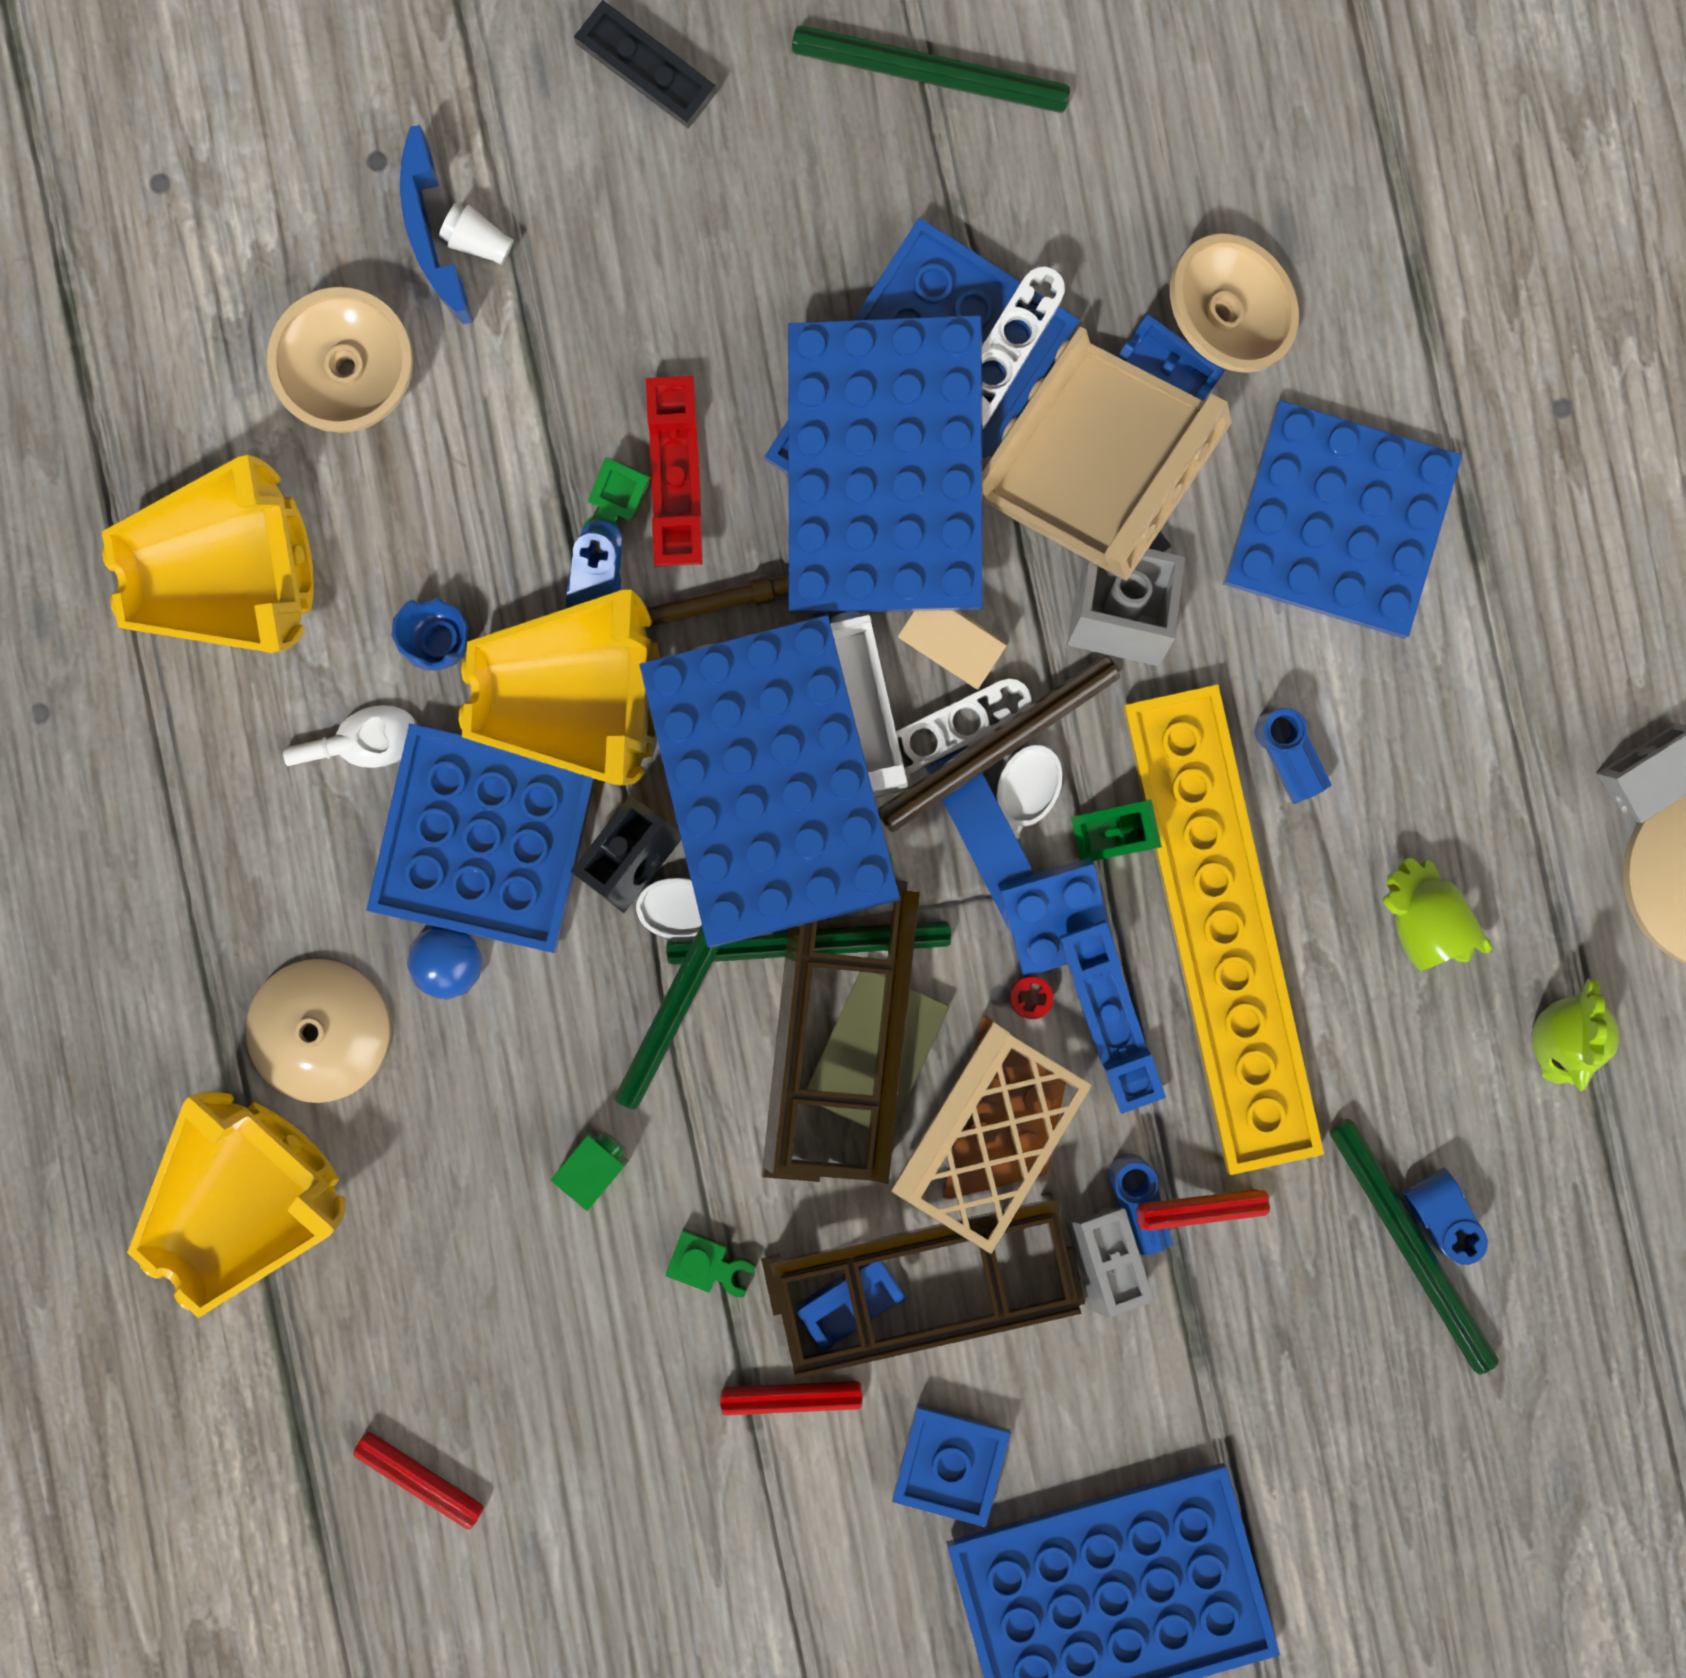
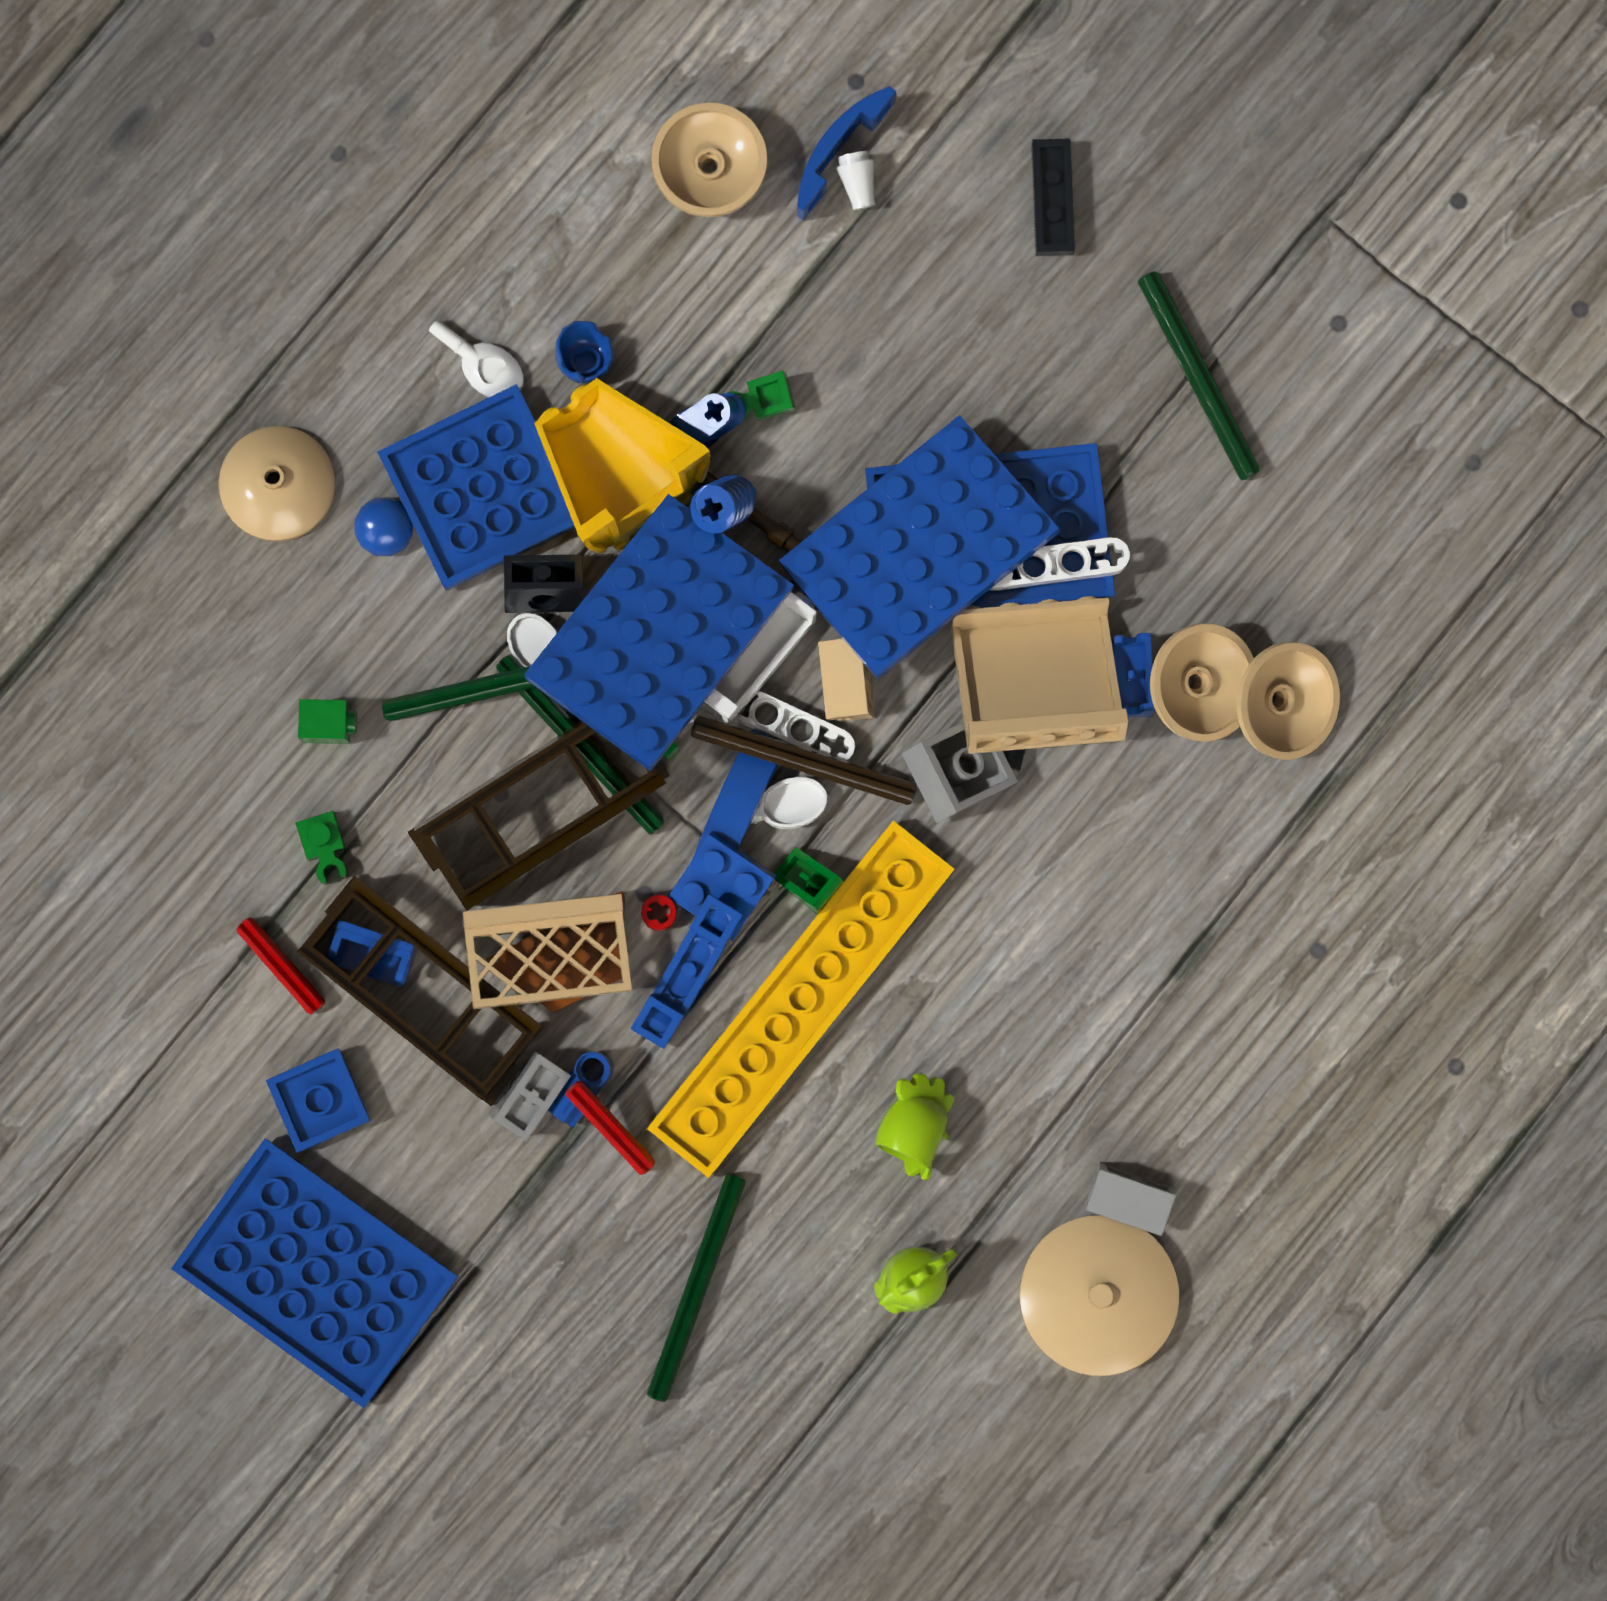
camera: 60 degrees right, 5 degrees down
(215, 562) = (520, 186): yellow cone -> none
(233, 1201) = (128, 513): yellow cone -> none
(418, 1480) = (42, 772): red axle -> none
(674, 471) = (810, 421): red slope -> none
(692, 619) = (723, 503): none -> blue piece
(852, 1049) = (532, 824): olive tile -> none
(1295, 758) = (947, 957): blue piece -> none
(1315, 238) = (1303, 705): none -> tan dish
(1342, 519) = (1127, 866): blue plate -> none
(1442, 1212) = (733, 1283): blue piece -> none

